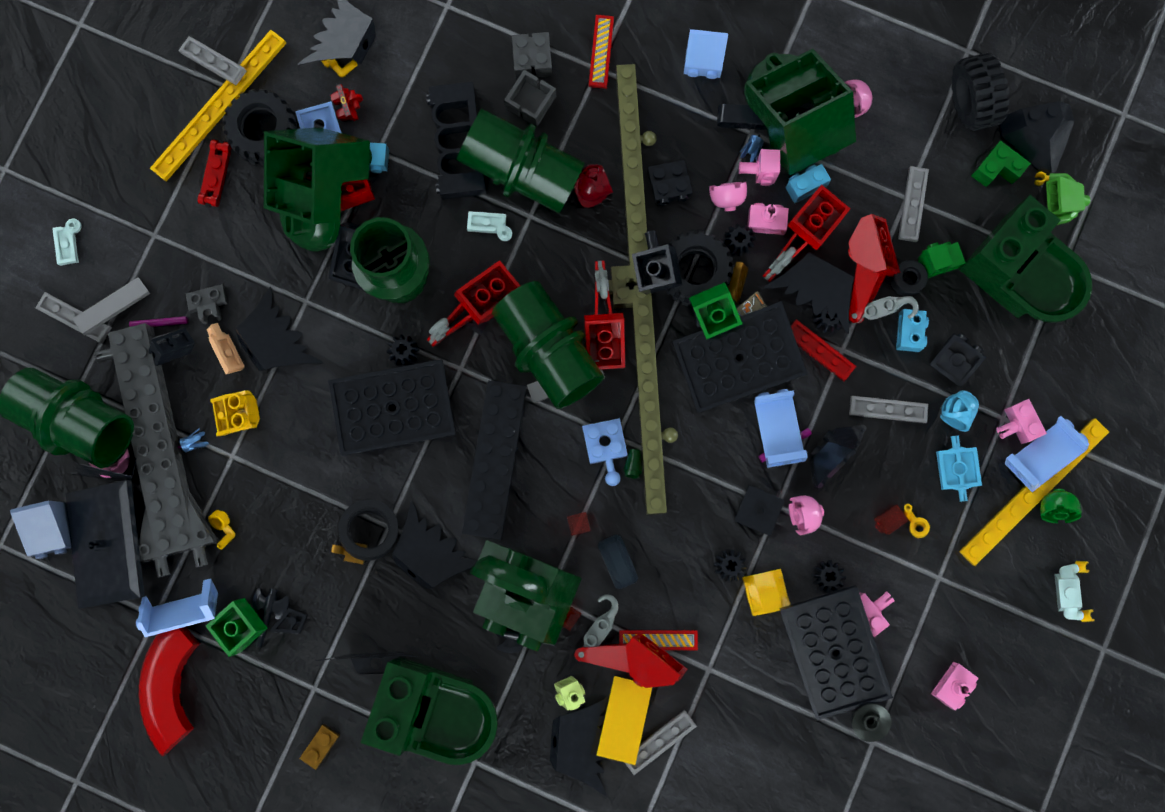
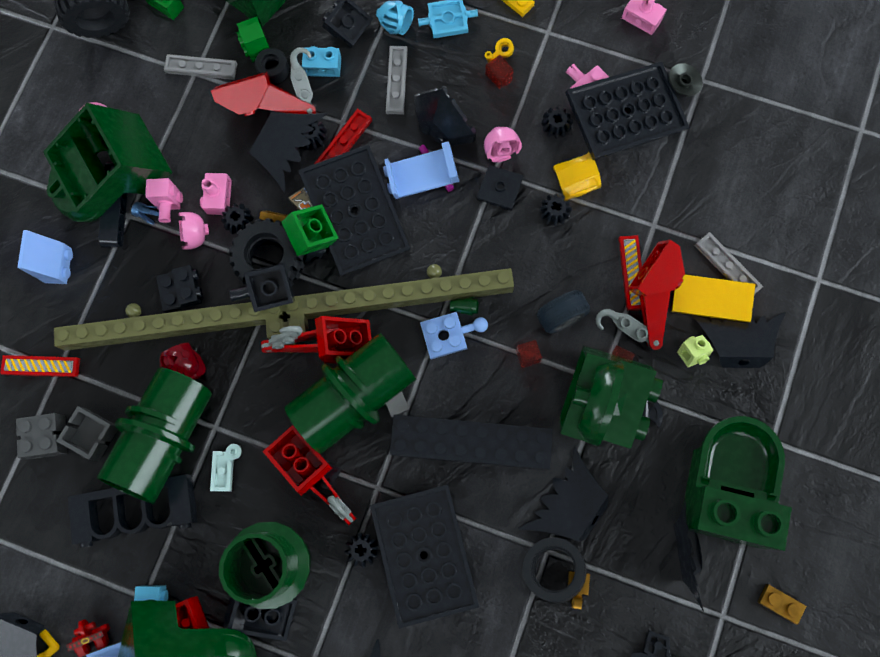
camera: 90 degrees left, 5 degrees down
(807, 183) = (180, 158): medium azure brick -> none
(813, 224) = (217, 147): red slope -> none

